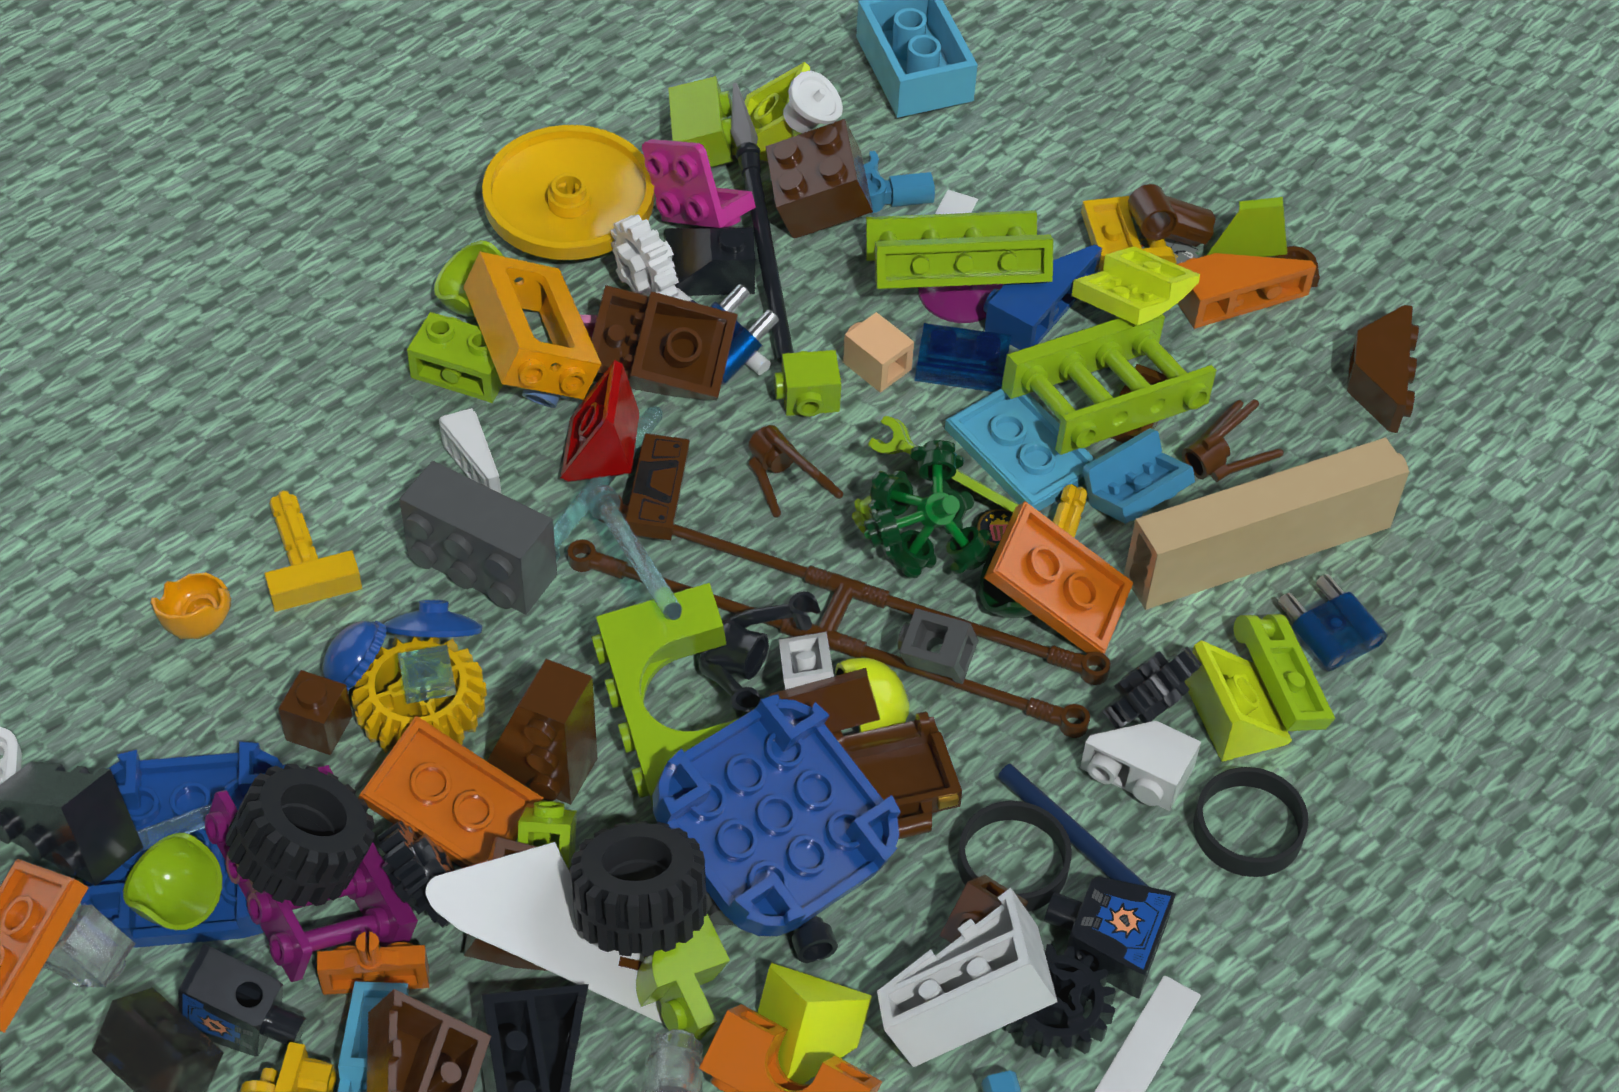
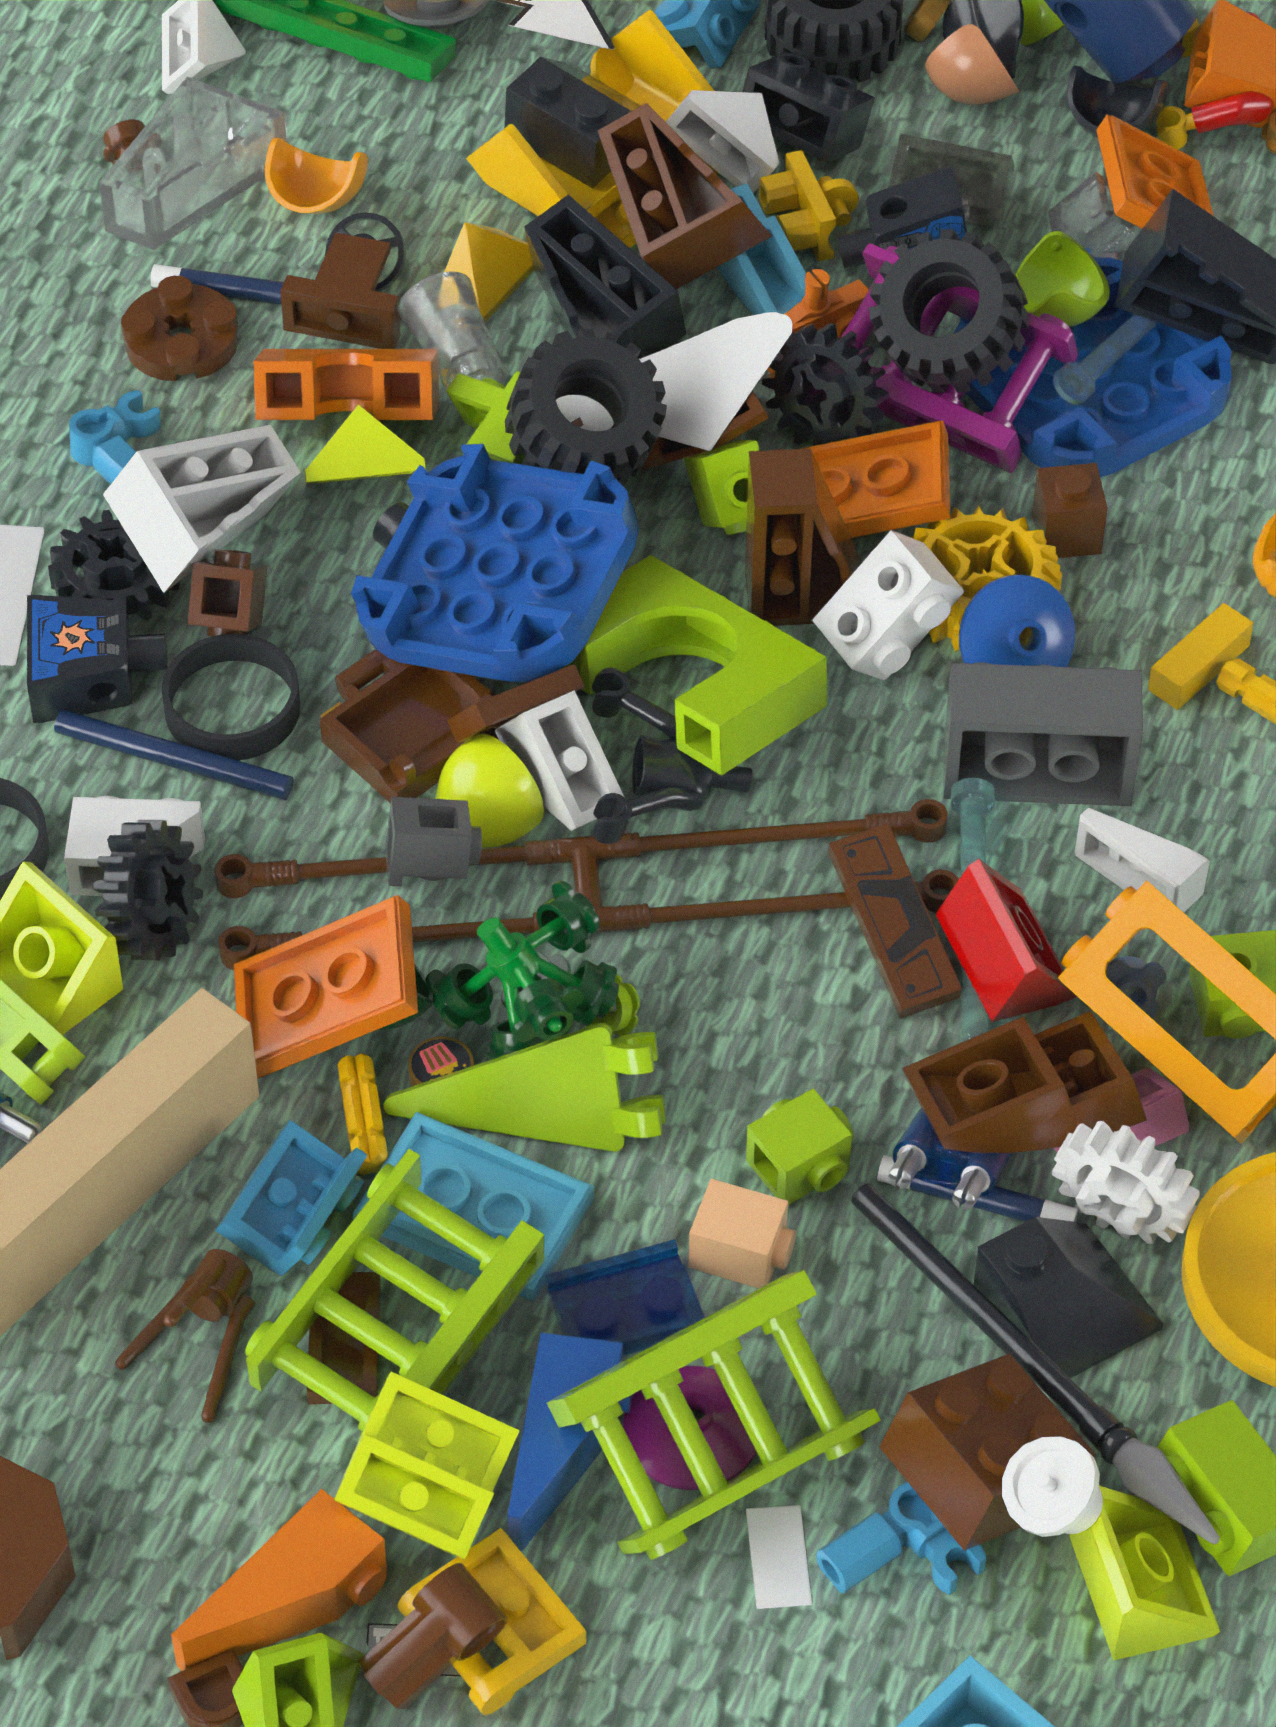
camera: 155 degrees right, 0 degrees up
(353, 651) = (1077, 569): blue hat -> none
(427, 674) = (974, 555): clear light blue tile -> none
(498, 665) = (888, 606): none -> white brick
(604, 505) = (839, 757): clear light blue bar -> none
(687, 187) = (1133, 1322): dark pink bracket -> none
(776, 453) = (785, 1035): reddish brown plant -> none

